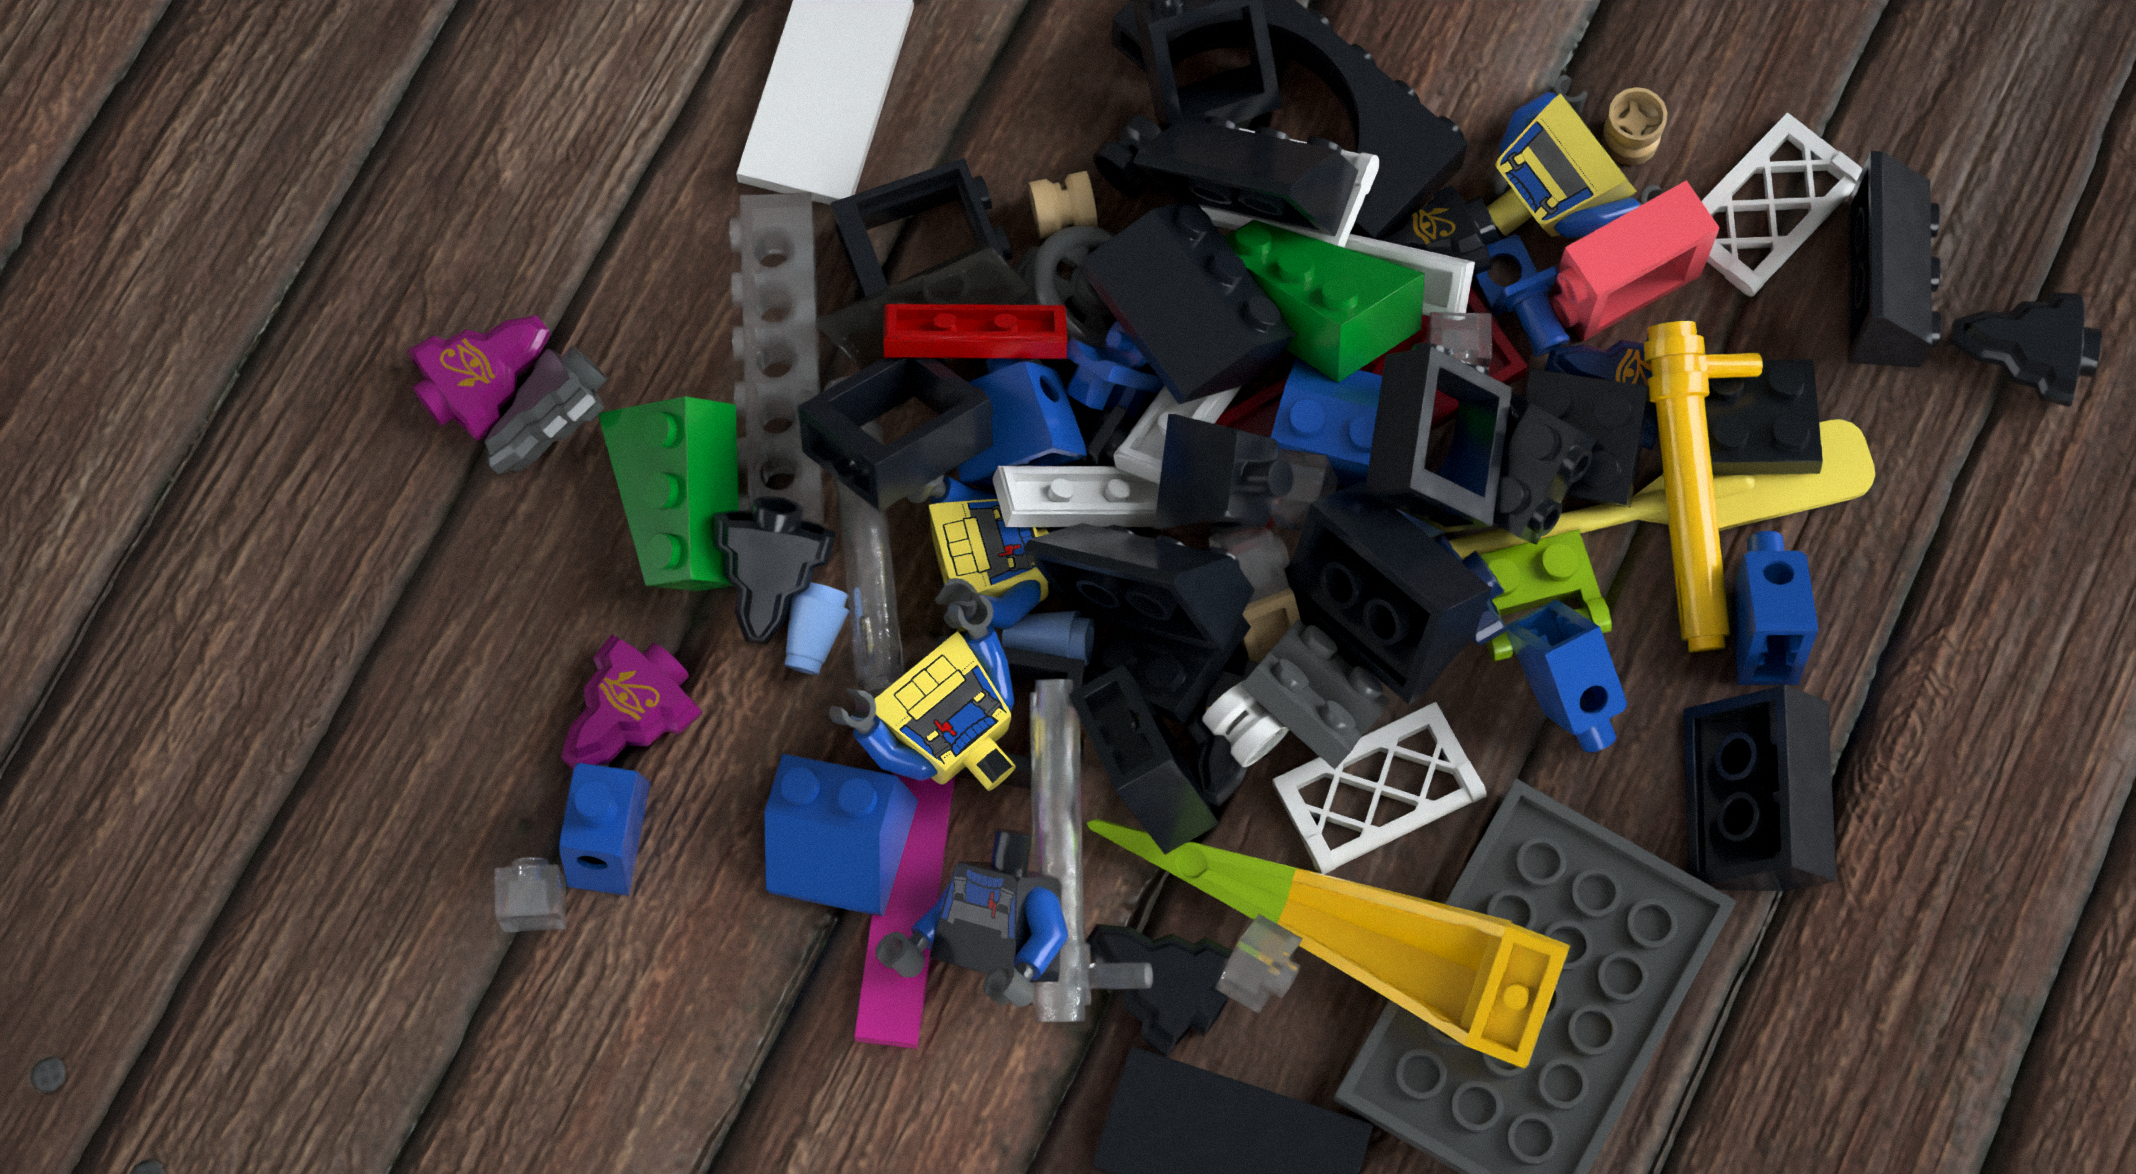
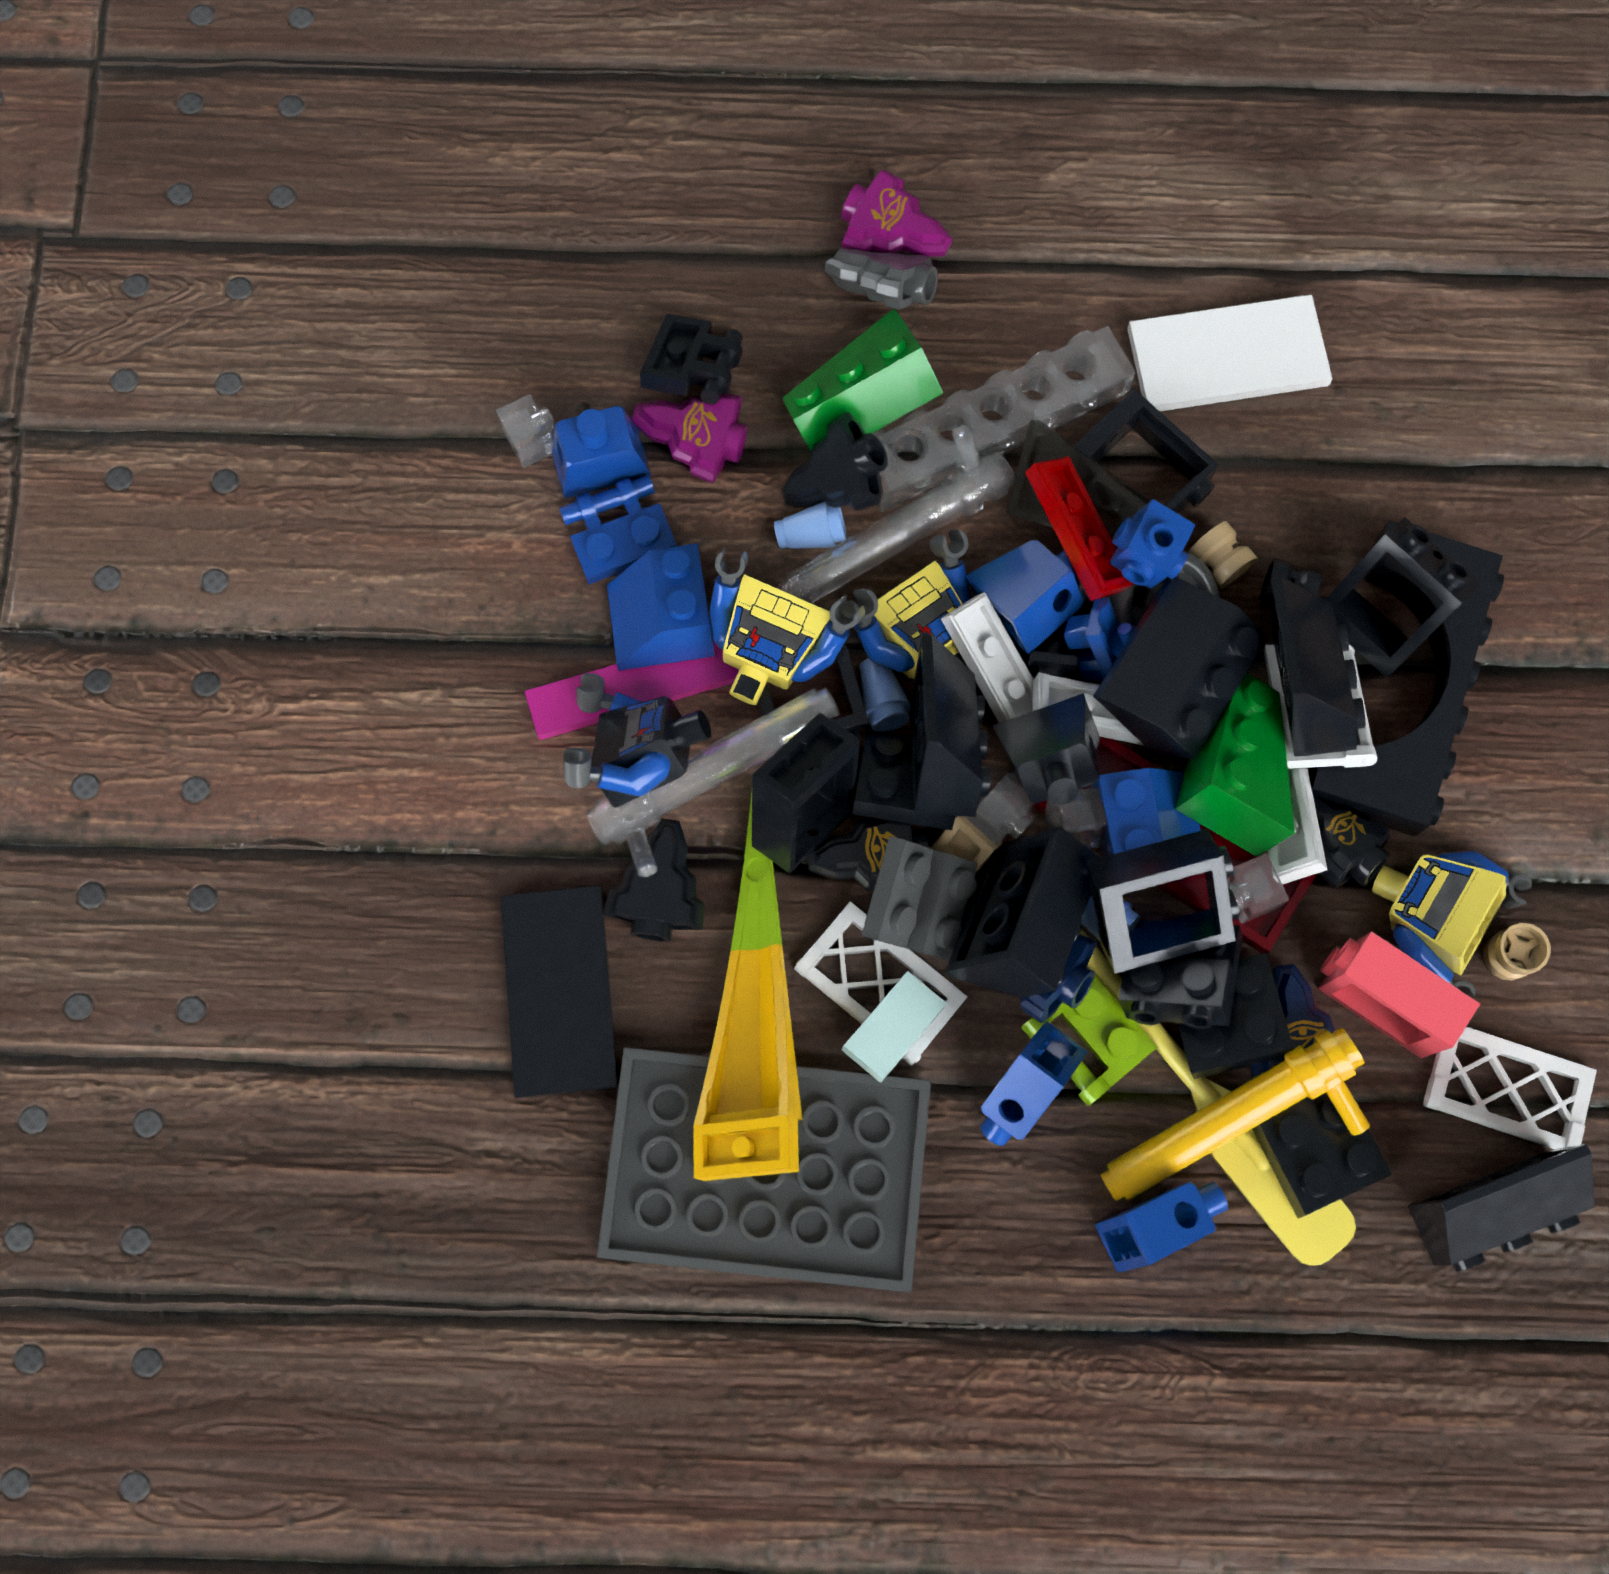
camera: 65 degrees right, 5 degrees up
(528, 683) = (678, 354): none -> black plate
(722, 847) = (618, 543): none -> blue plate
(891, 472) = (963, 530): black window -> none
(1040, 263) = (1151, 545): none -> blue brick
(1245, 725) = (866, 856): white wheel -> none
(1261, 964) = (698, 950): clear plate -> none
(1440, 789) = (894, 1026): none -> light aqua tile
(1525, 297) = (1327, 927): blue bracket -> none
(1760, 791) = (1009, 1276): black slope -> none
(2035, 344) = (1500, 1354): black rock -> none

